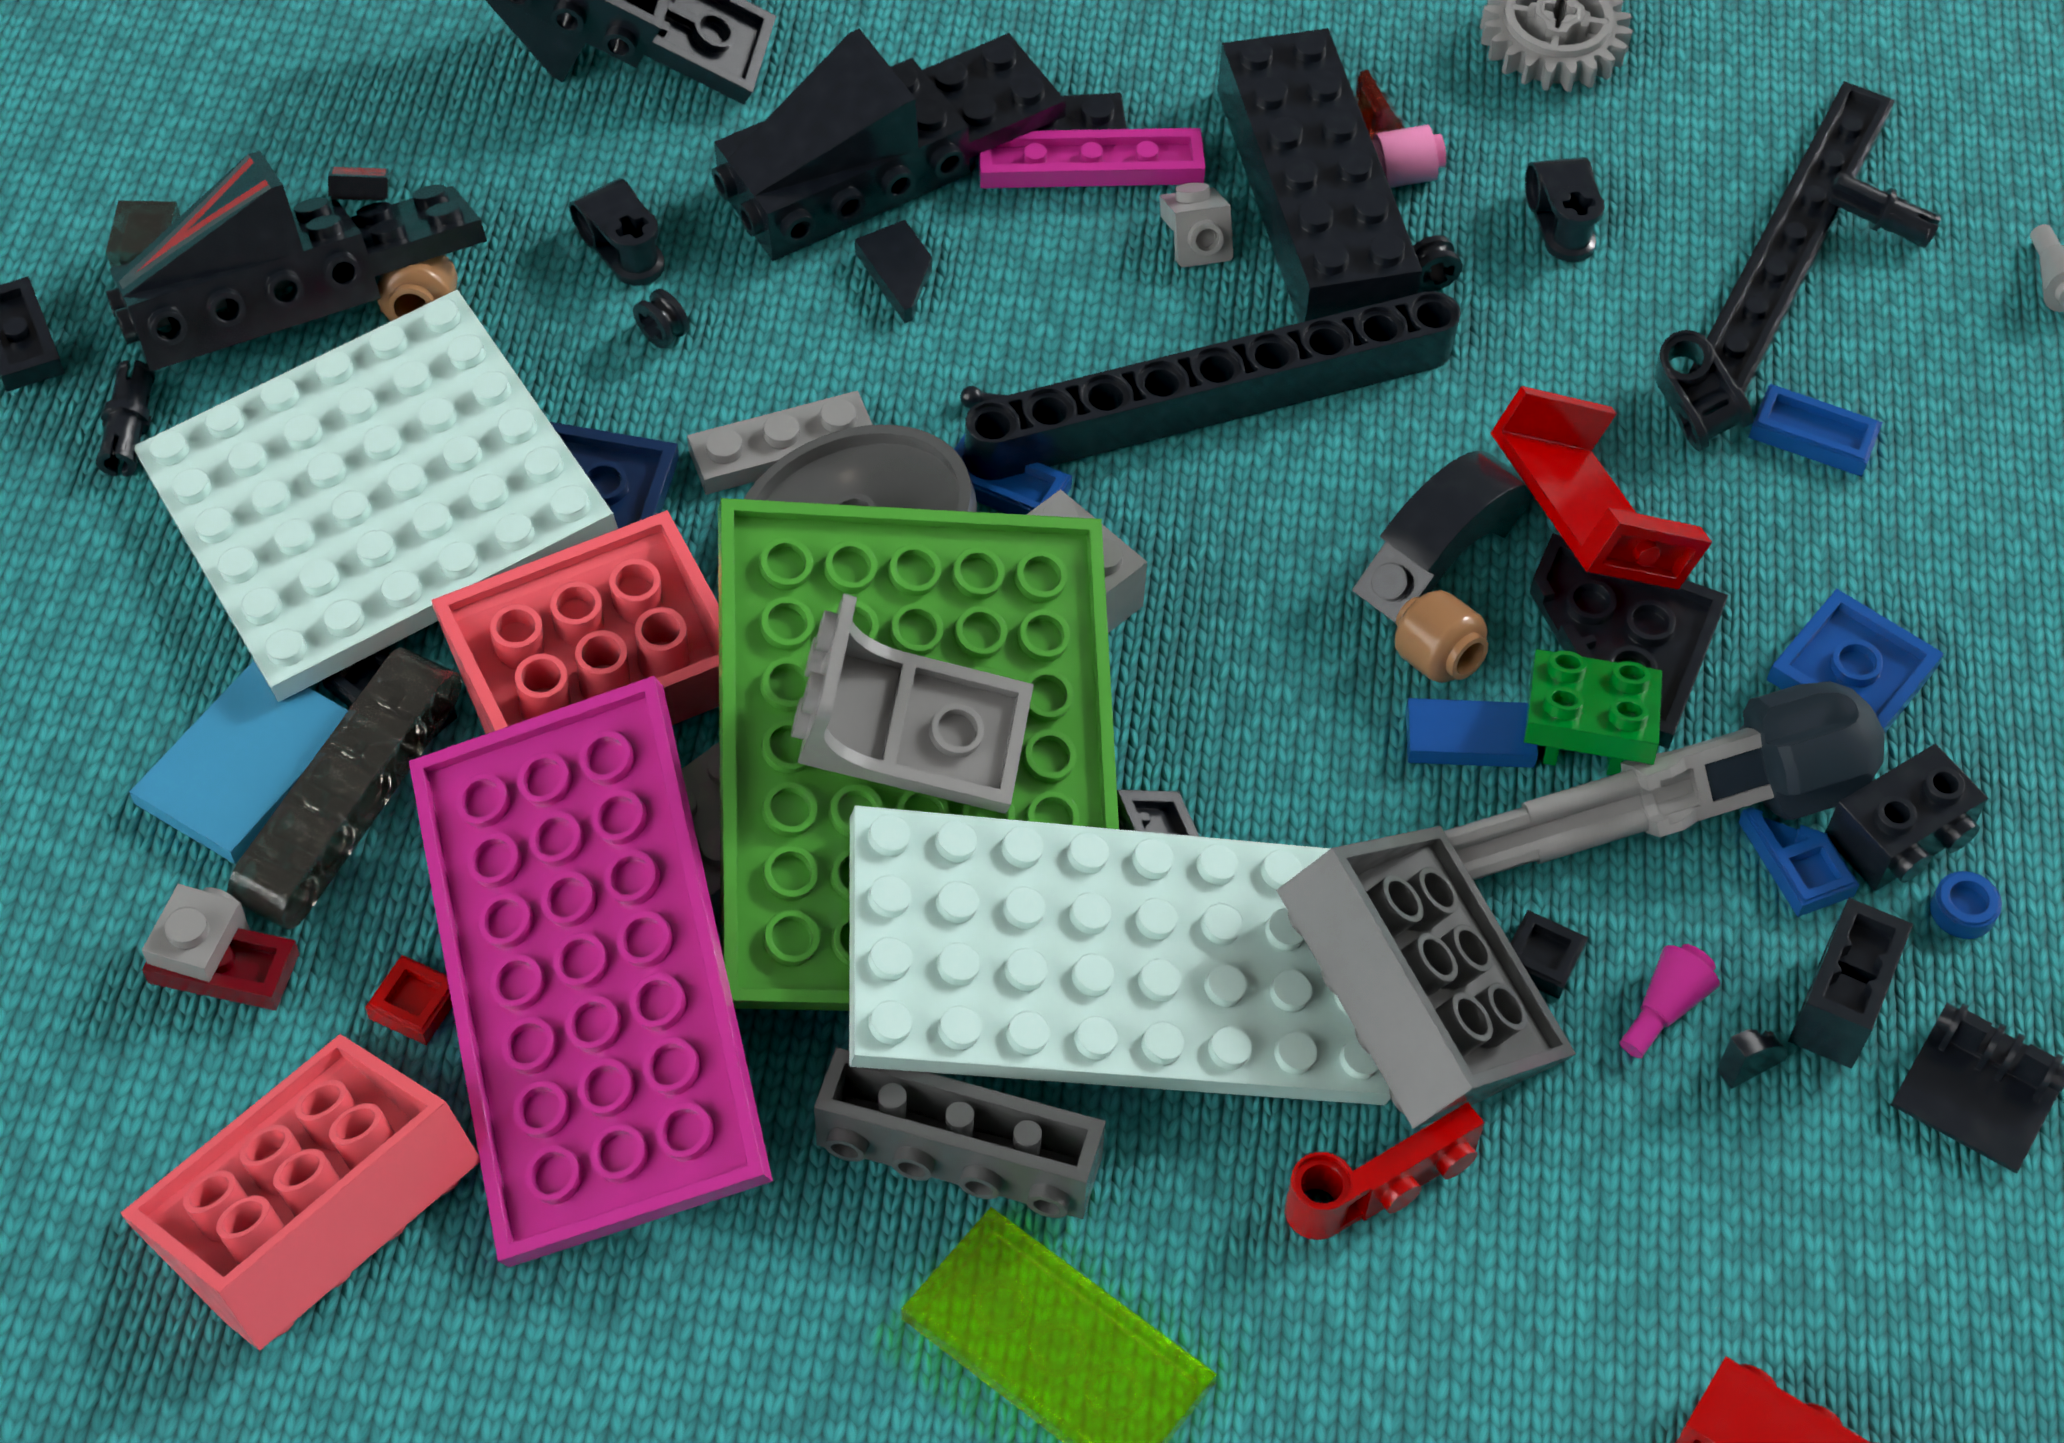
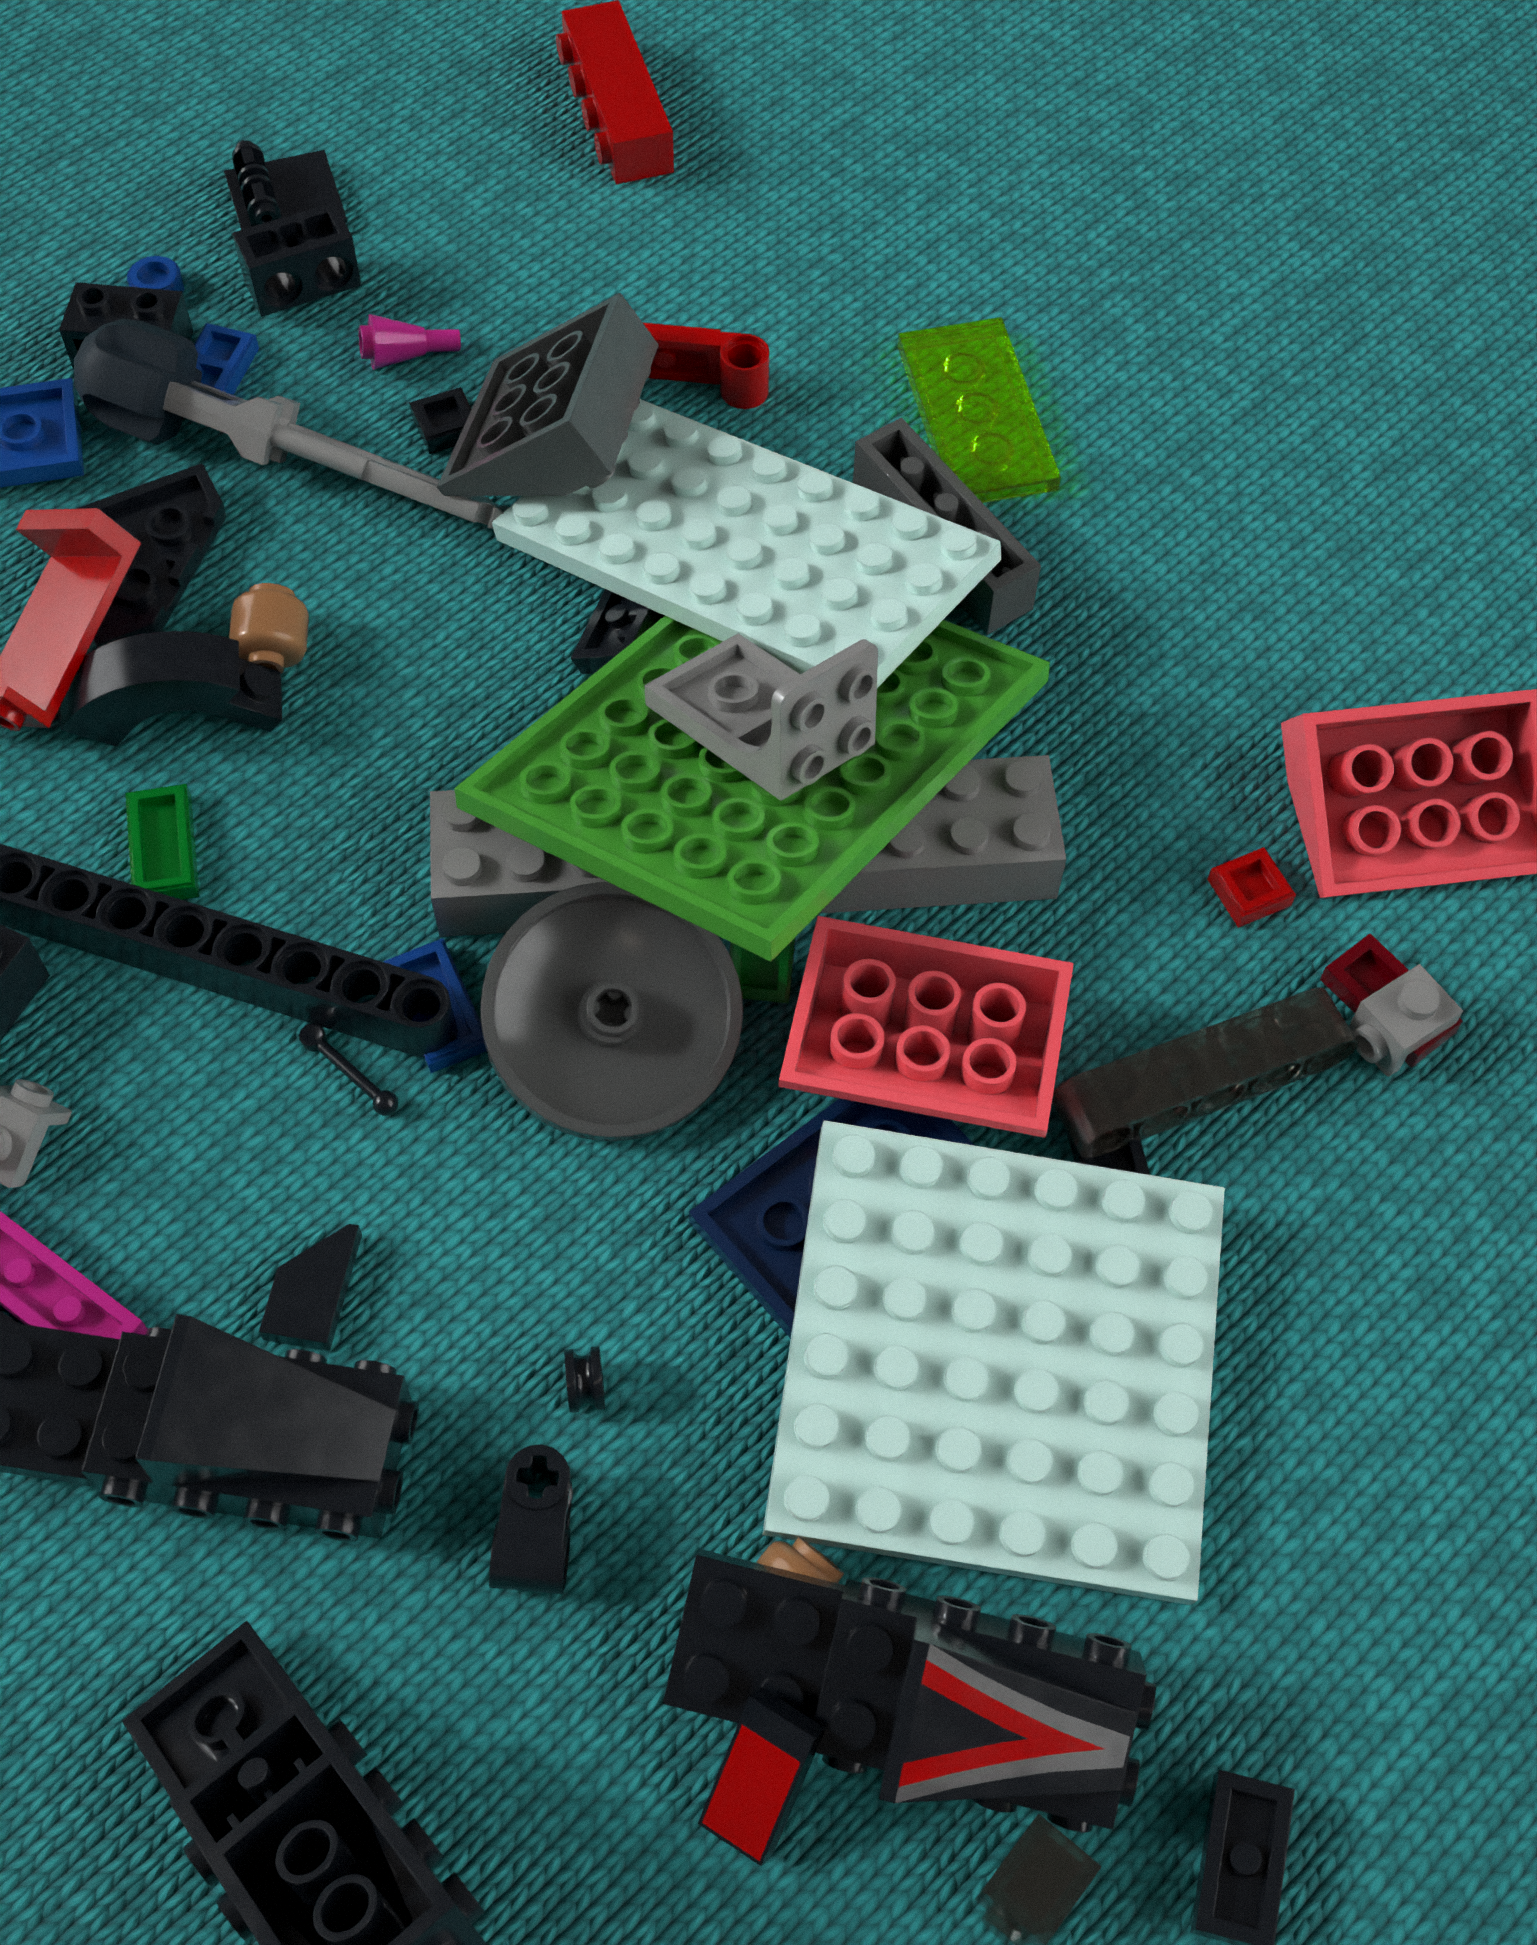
camera: 140 degrees left, 5 degrees up
(125, 418) = (1186, 1647): black pin -> none
(237, 763) = (1282, 1174): dark azure tile -> none
(586, 974) = (1123, 774): dark pink plate -> none
(747, 448) = (586, 1175): light grey plate -> none
(1330, 453) = (162, 841): none -> green tile
(1468, 733) = (322, 572): blue tile -> none
(1593, 708) = (243, 487): green plate -> none
(1750, 1055) = (396, 282): black tile -> none

